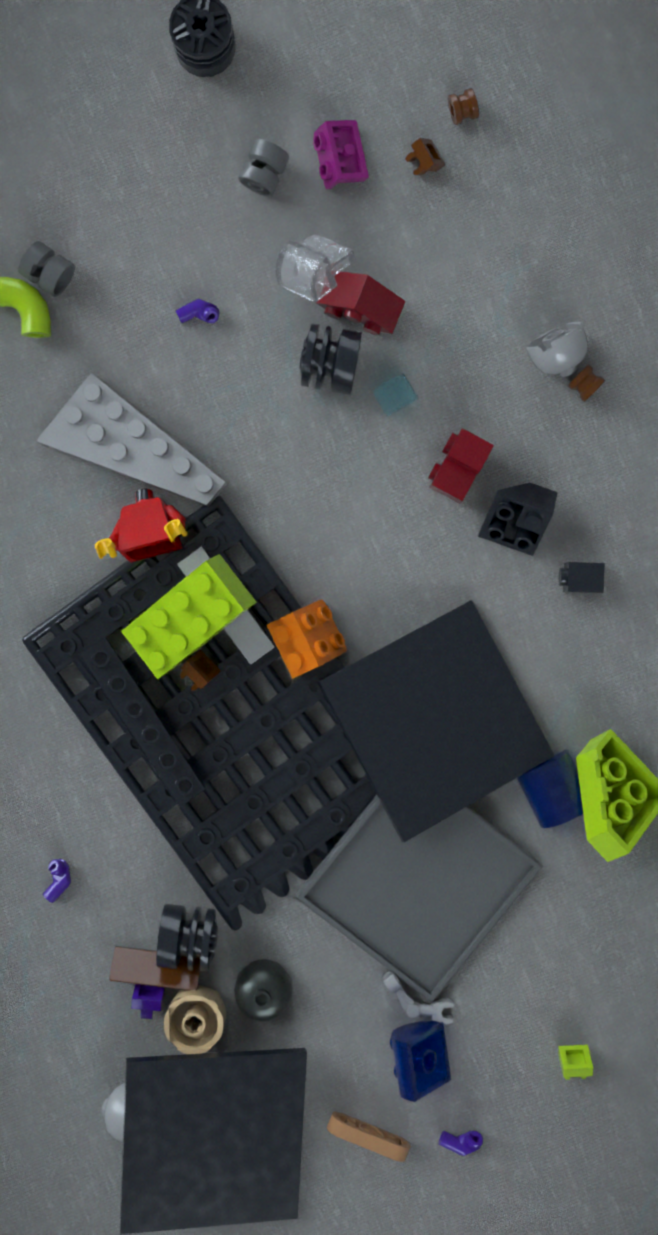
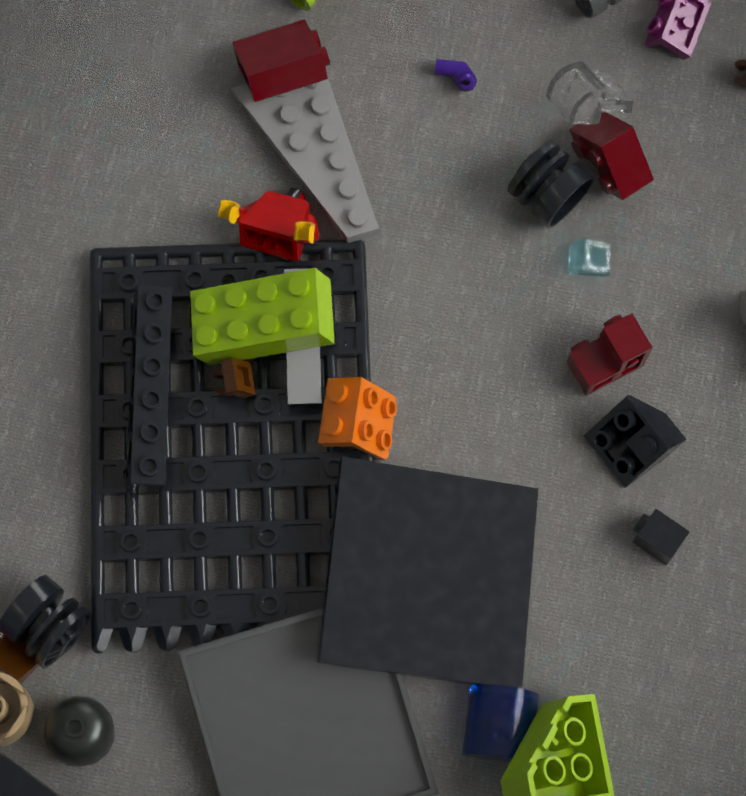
camera: 35 degrees right, 15 degrees down
(59, 394) = (281, 60): none -> dark red brick

